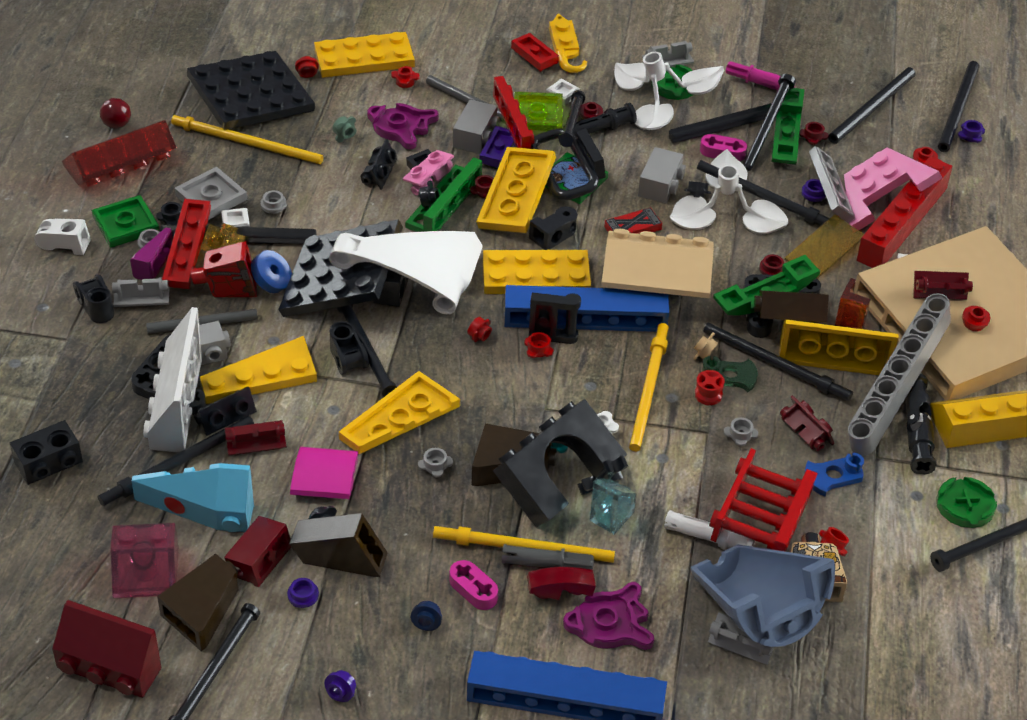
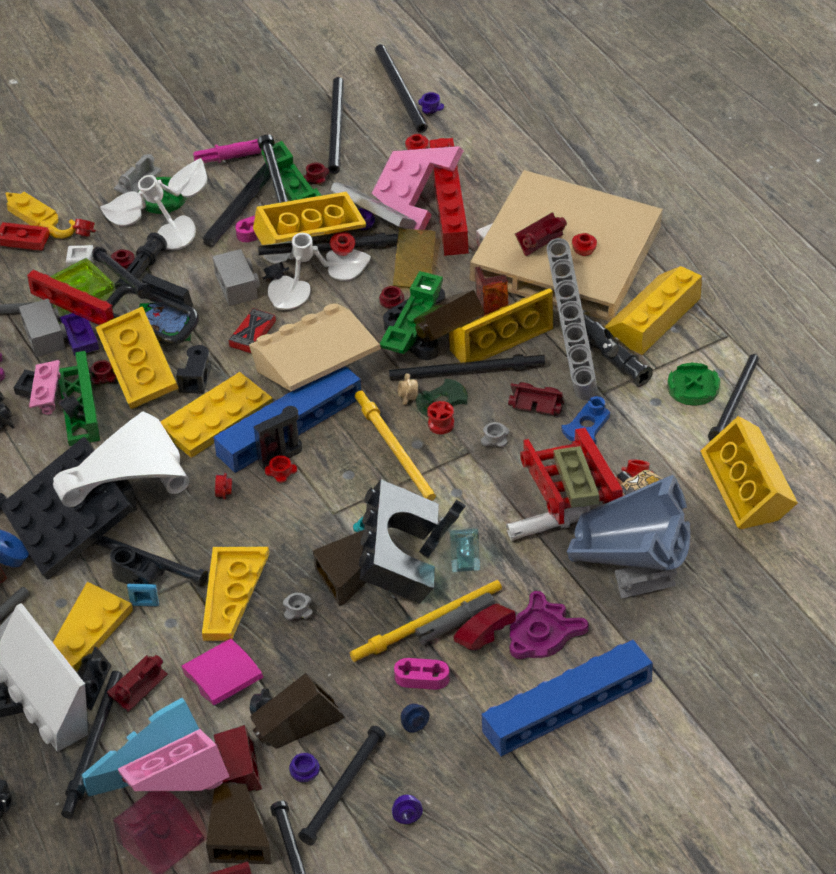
camera: 35 degrees left, 0 degrees up
(195, 520) = (183, 765): none -> bright pink slope
(316, 628) = (308, 834): none -> black bar
(330, 373) = (143, 594): none -> dark azure slope
(586, 71) = (84, 227): none -> red plate
(756, 507) = (576, 477): none -> olive plate
(760, 159) = (310, 215): none -> yellow slope
(769, 203) = (342, 249): none -> red plate
(931, 613) = (748, 475): none -> yellow slope

